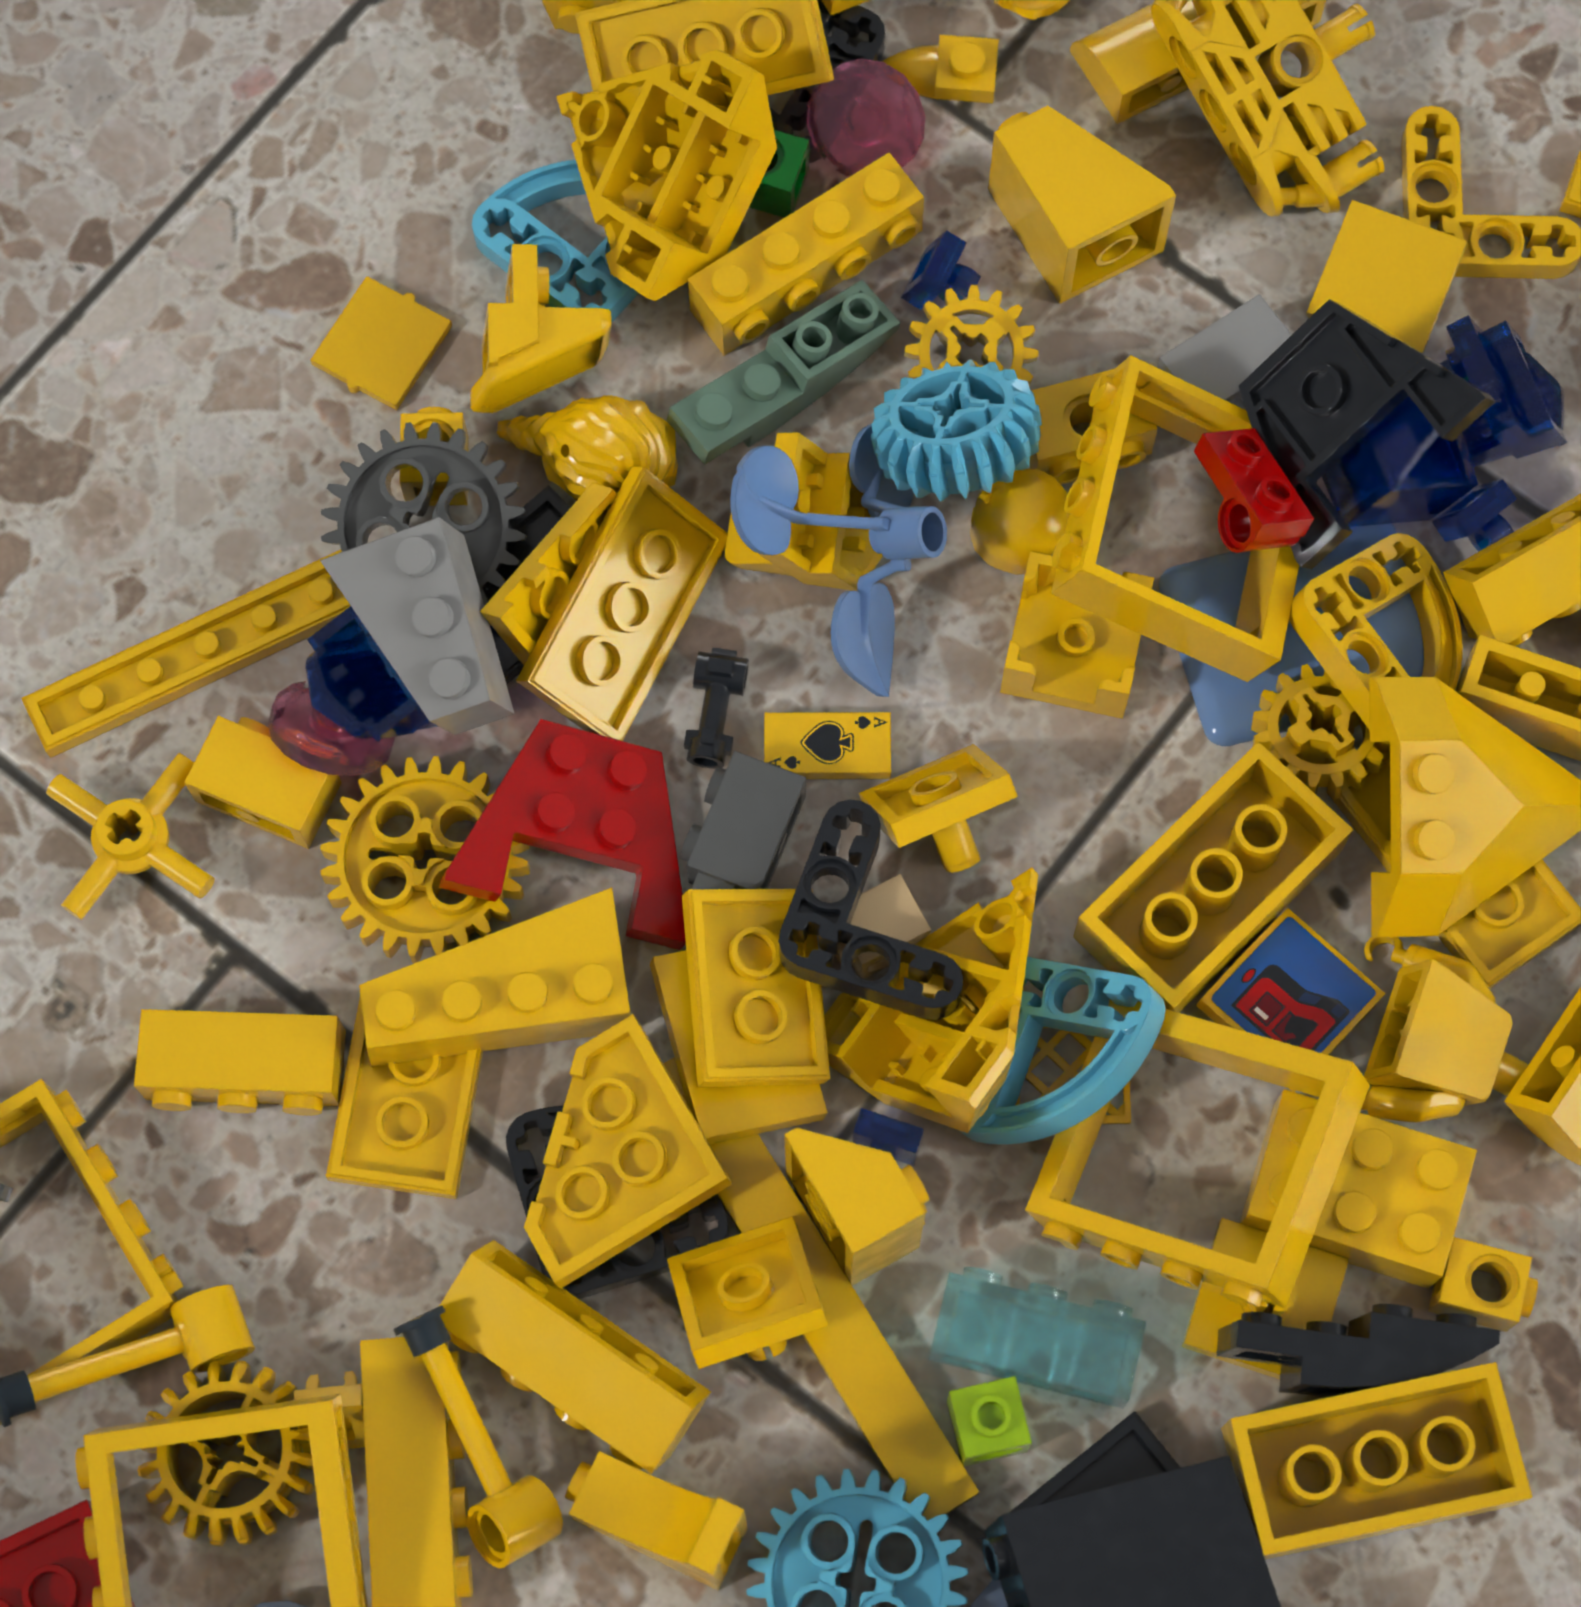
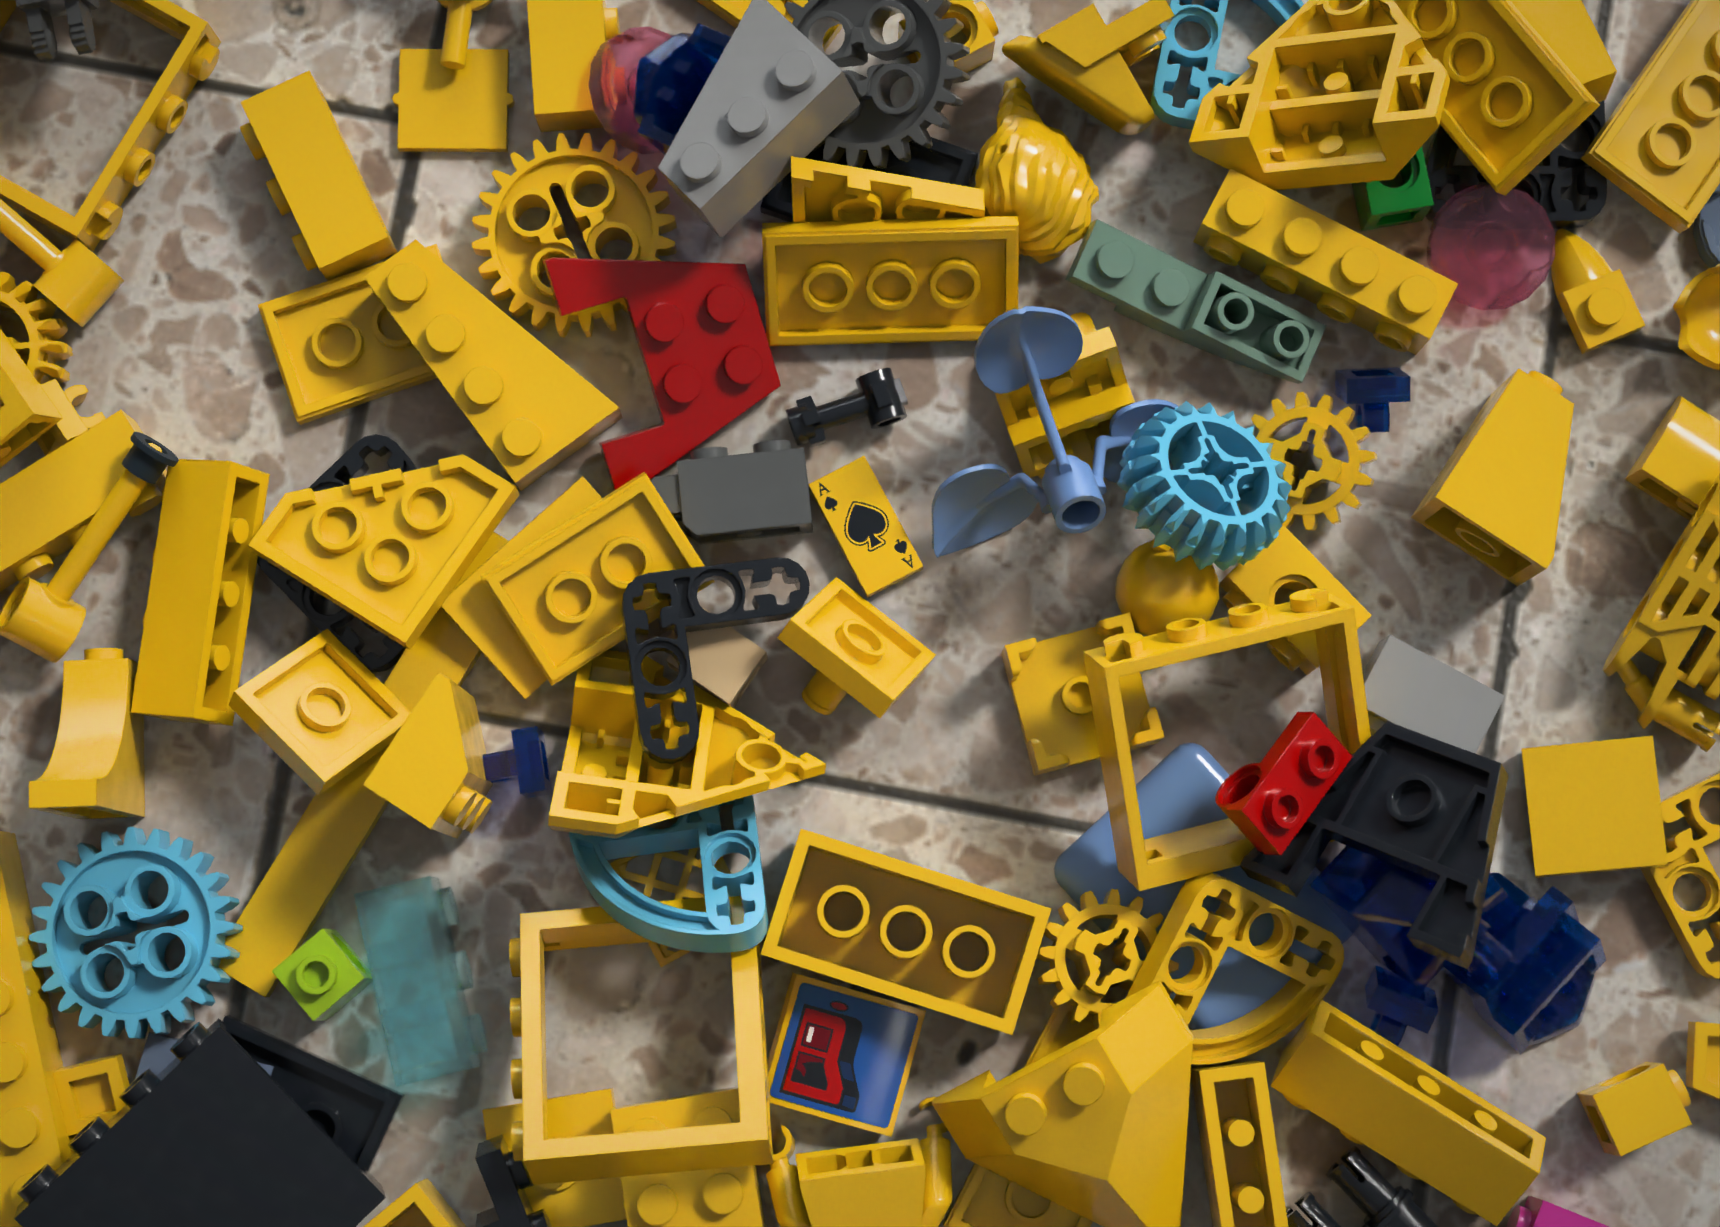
camera: 60 degrees right, 10 degrees up
(240, 914) = (453, 107): none -> yellow piece

